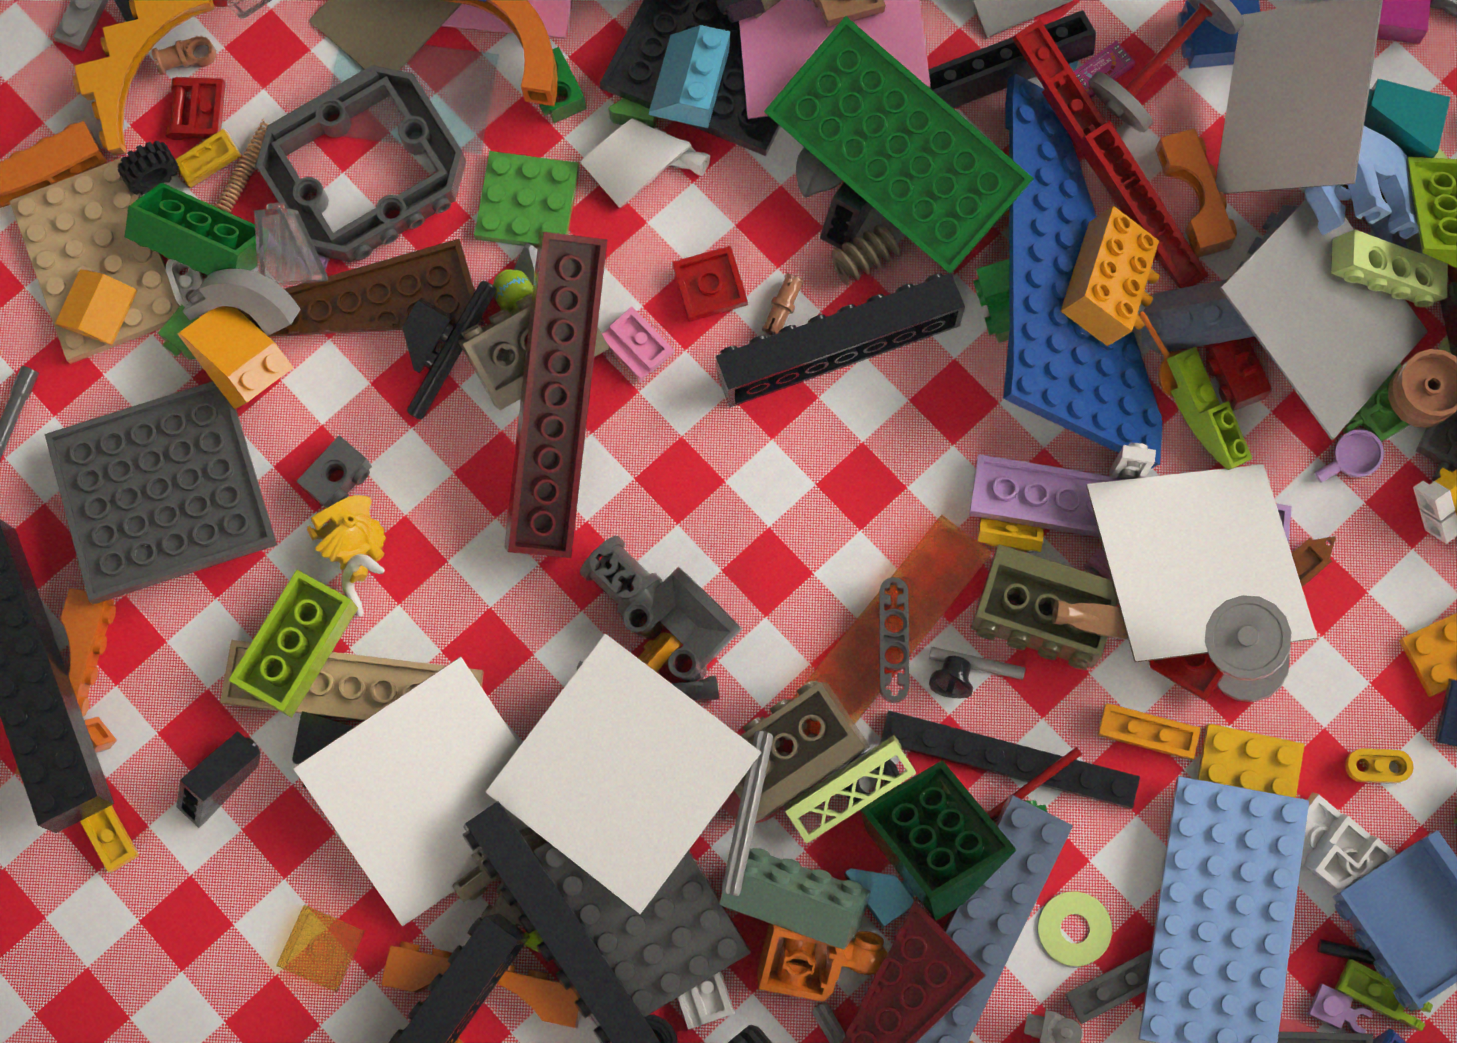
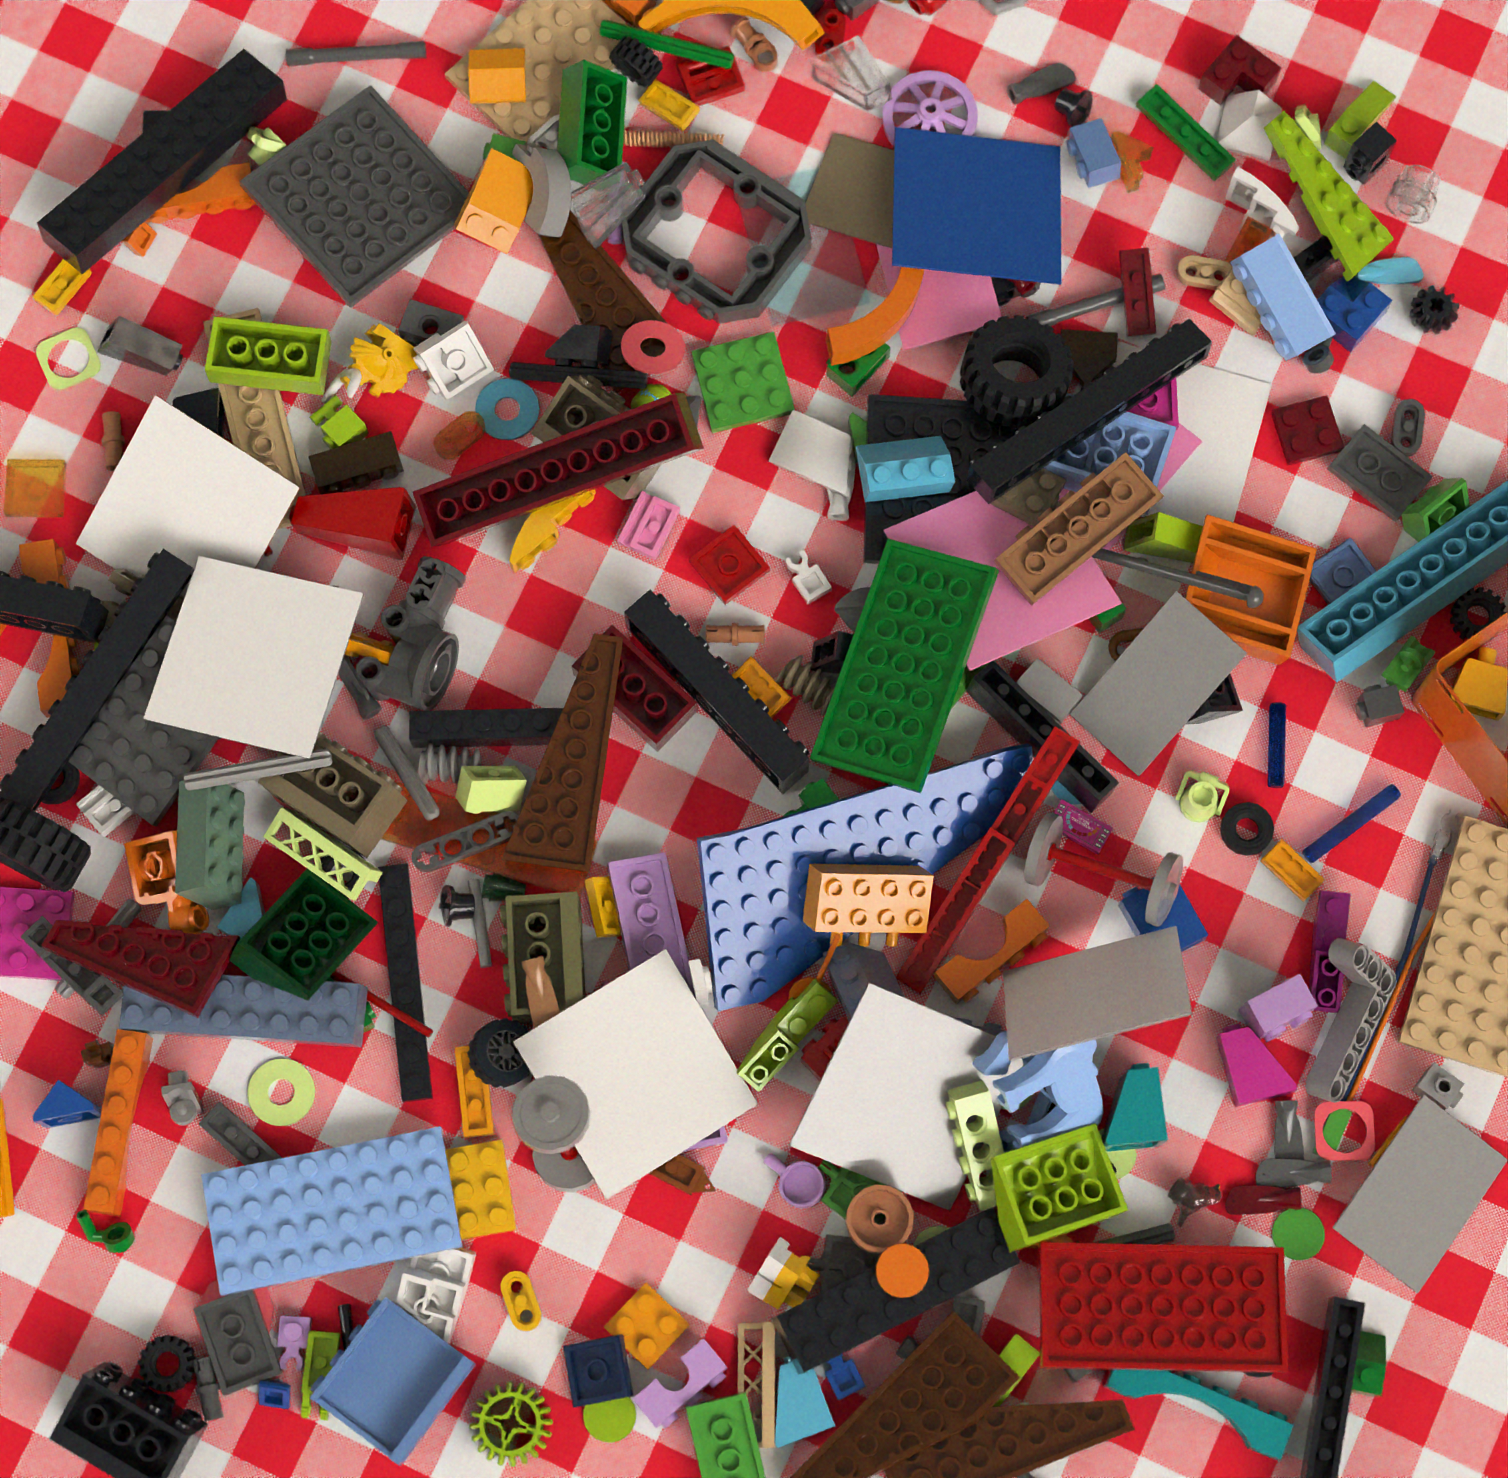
camera: 65 degrees right, 0 degrees up
(61, 564) = (265, 144): none -> yellowish green piece
(145, 130) = (668, 44): none -> green axle
(215, 879) = (62, 383): none -> yellowish green piece
(307, 845) = (112, 439): none -> nougat pin
(382, 464) = (452, 360): none -> white plate
(400, 602) = (341, 426): none -> lime brick
(446, 603) = (356, 464): none -> dark brown brick
(451, 458) = (508, 389): none -> medium azure gear
(457, 245) = (641, 362): none -> coral gear
(461, 491) = (458, 435): none -> clear orange plate
(509, 621) = (362, 519): none -> red slope
(600, 456) = (540, 530): none -> yellow slope
(759, 215) = (809, 581): none -> white plate
(785, 566) = (483, 727): none -> black brick
(797, 673) = (407, 773): none -> light grey axle
(801, 417) = (647, 695): none -> dark red brick
(804, 626) = (445, 764): none -> light grey piece
(850, 594) = (490, 788): none -> yellowish green brick
(854, 293) = (762, 686): none -> light orange plate
(889, 522) = (564, 799): none -> reddish brown wing
(951, 627) = (497, 887): none -> clear green cone
(960, 39) = (1049, 690): none -> light grey brick
(1120, 672) = (495, 1055): none -> black wheel

